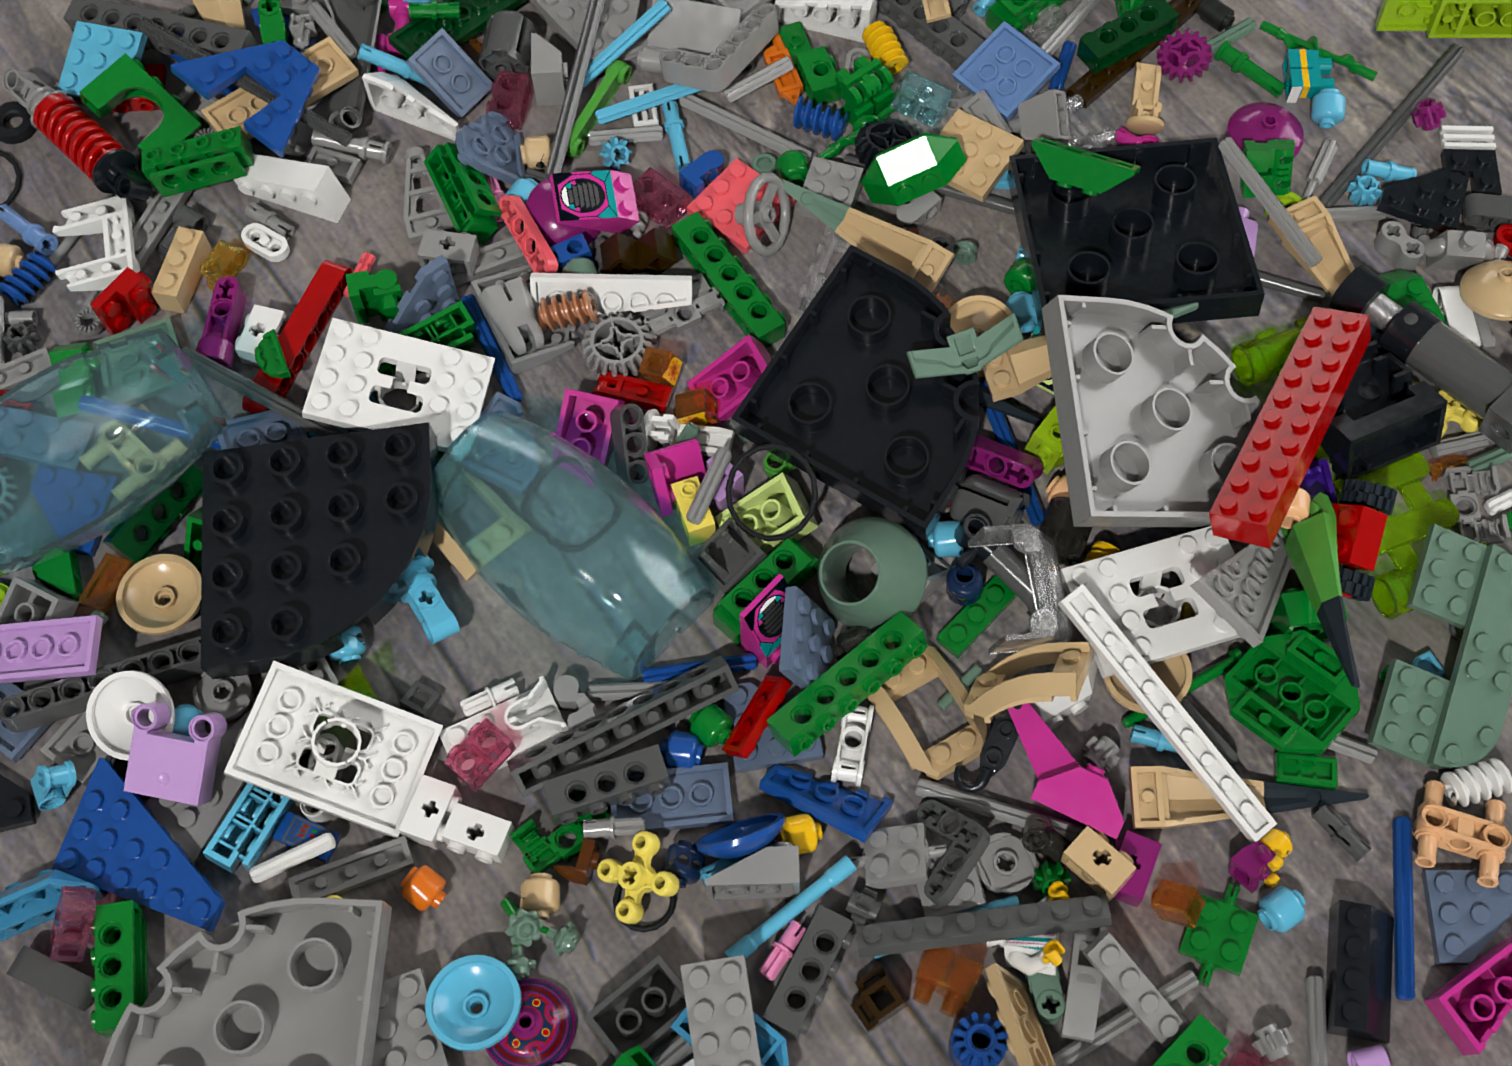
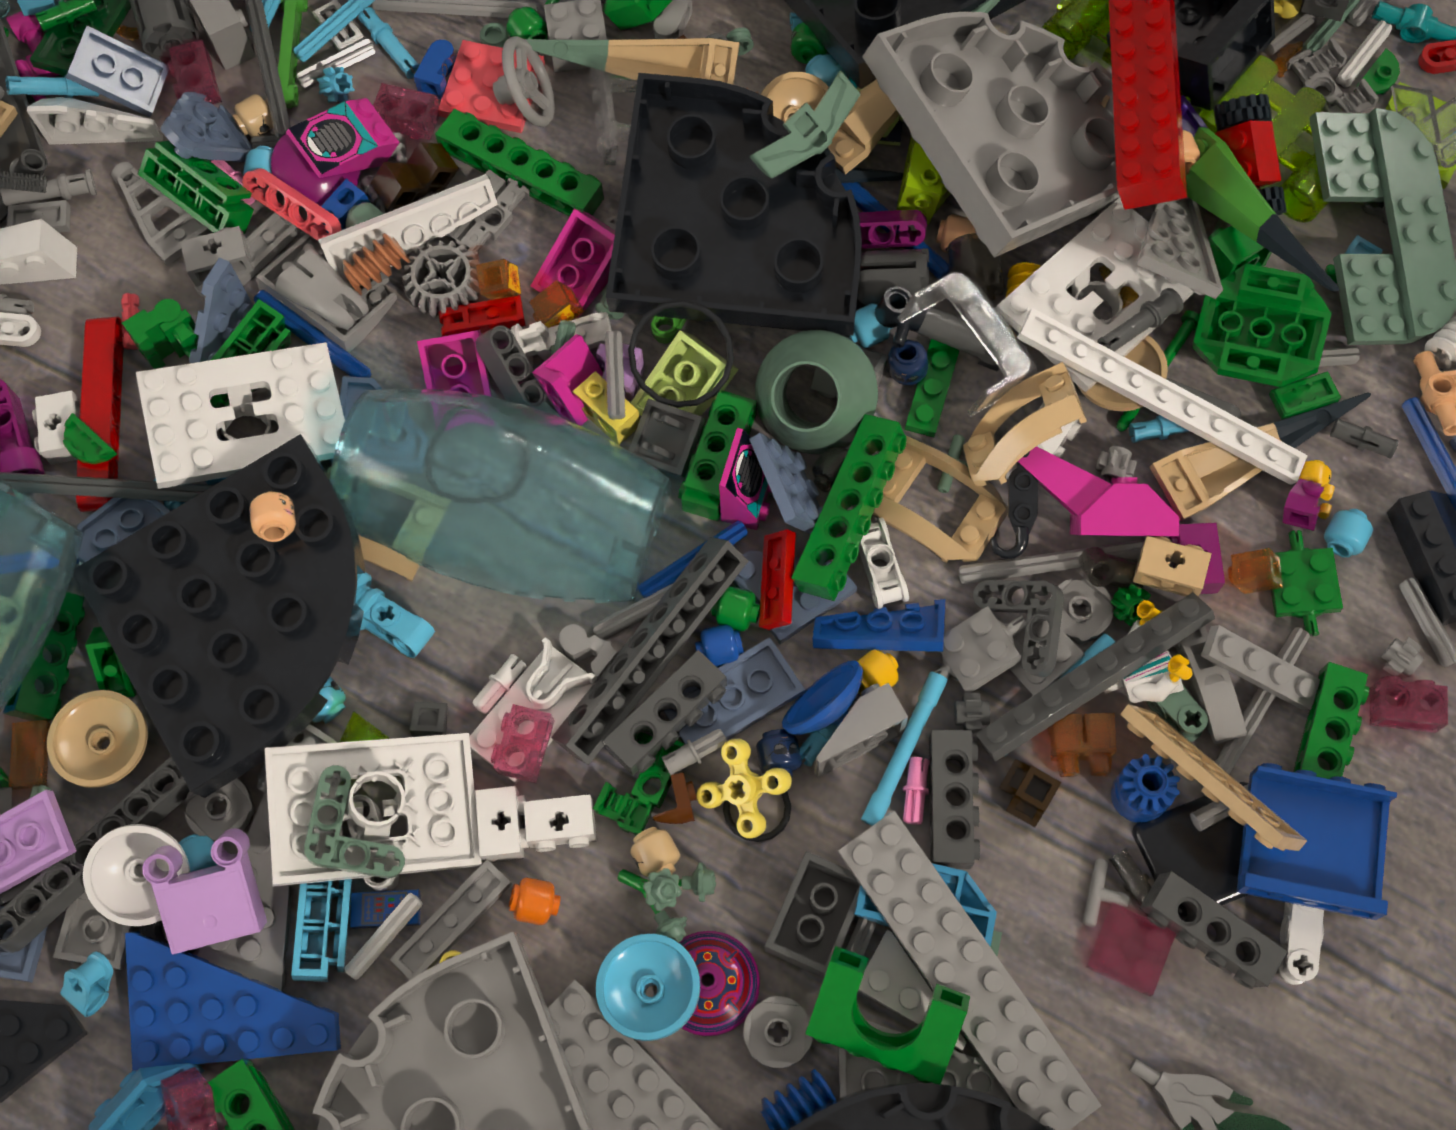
camera: 25 degrees left, 5 degrees up
(290, 765) = (339, 844): none -> sand green beam
(370, 478) = (272, 516): none -> light nougat head
(1191, 636) = (1150, 315): none -> dark grey pin

